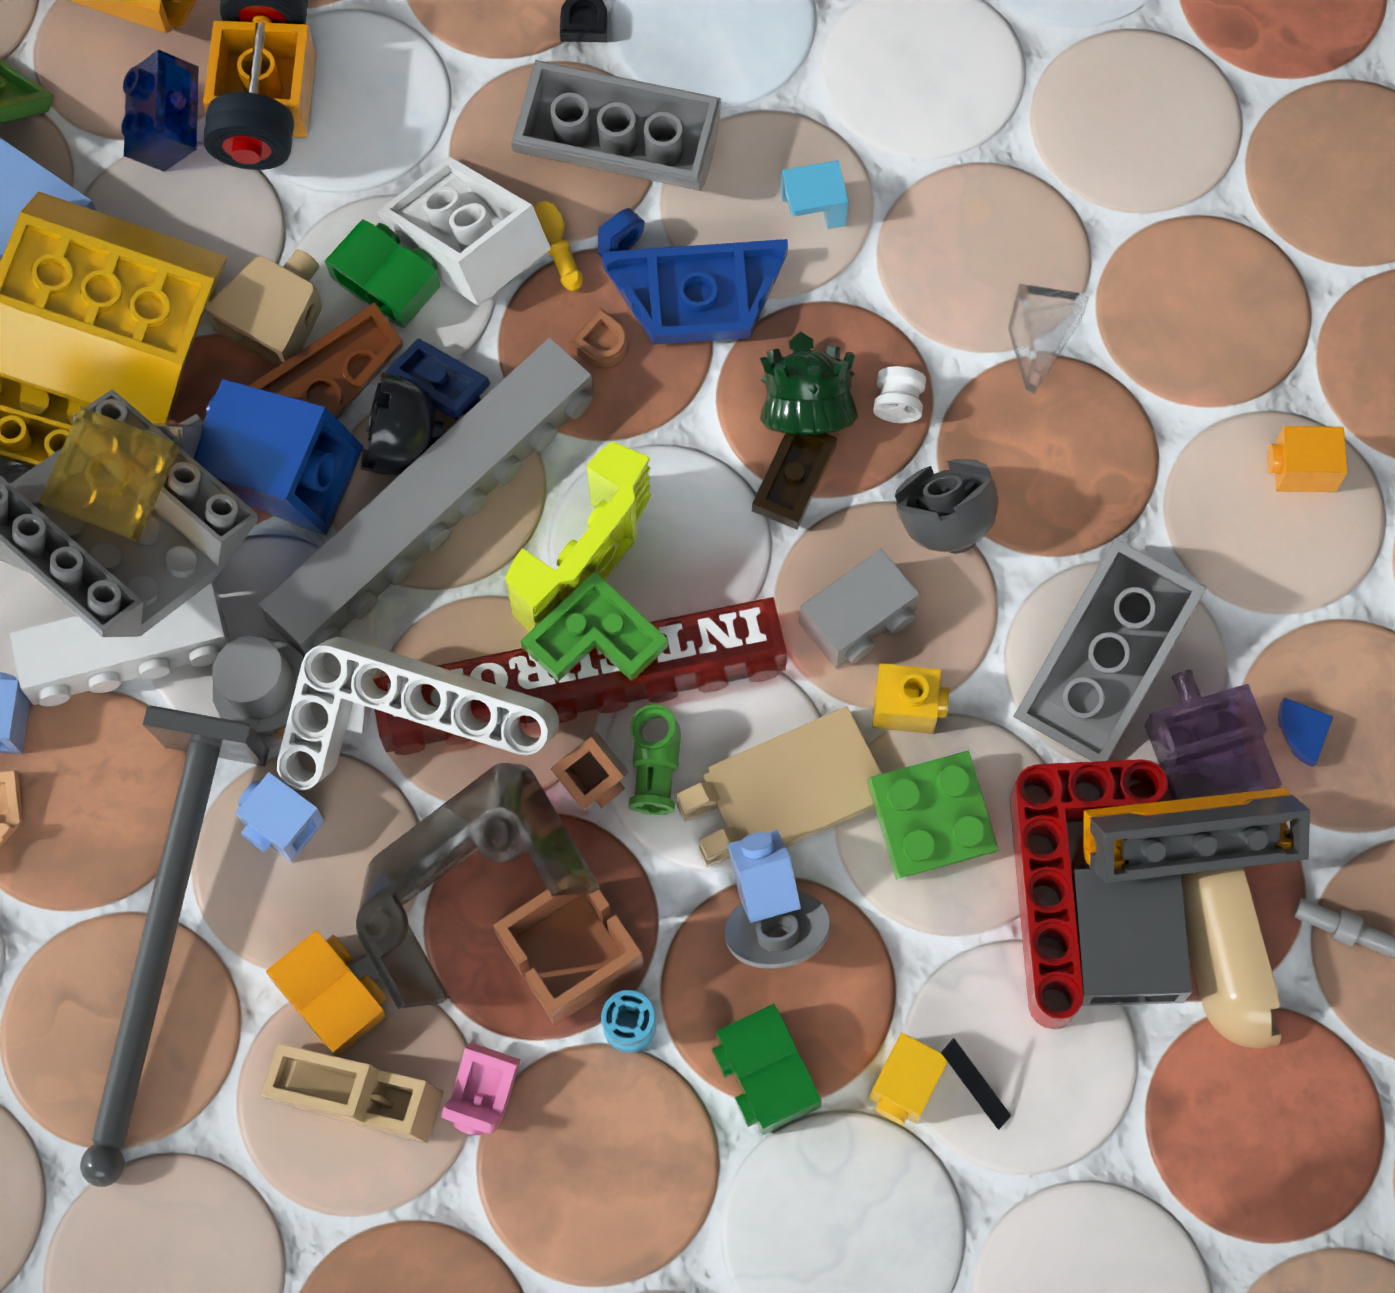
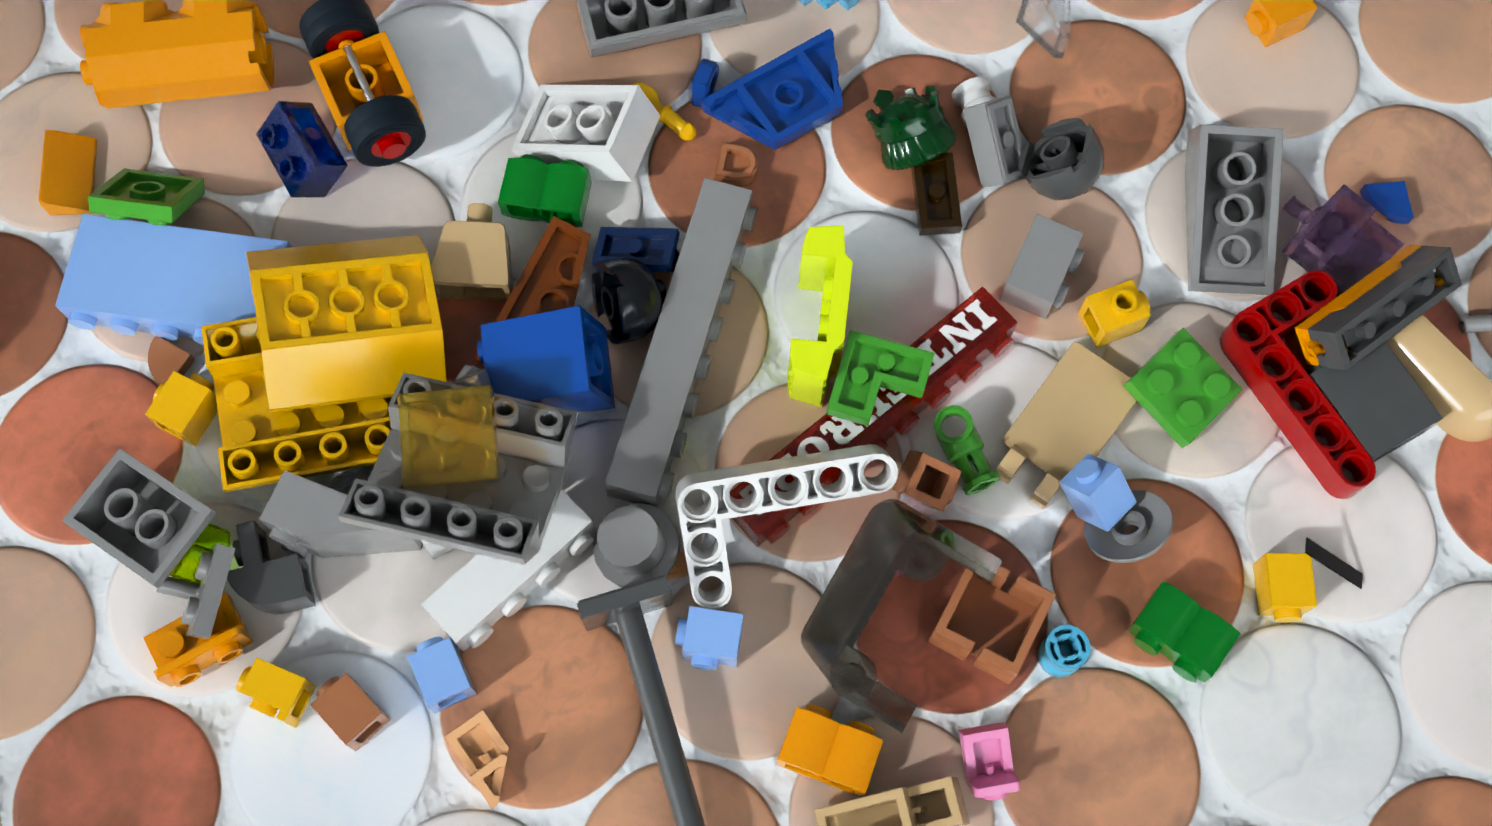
camera: 30 degrees left, 0 degrees up
(891, 446) = (995, 140): none -> light grey slope

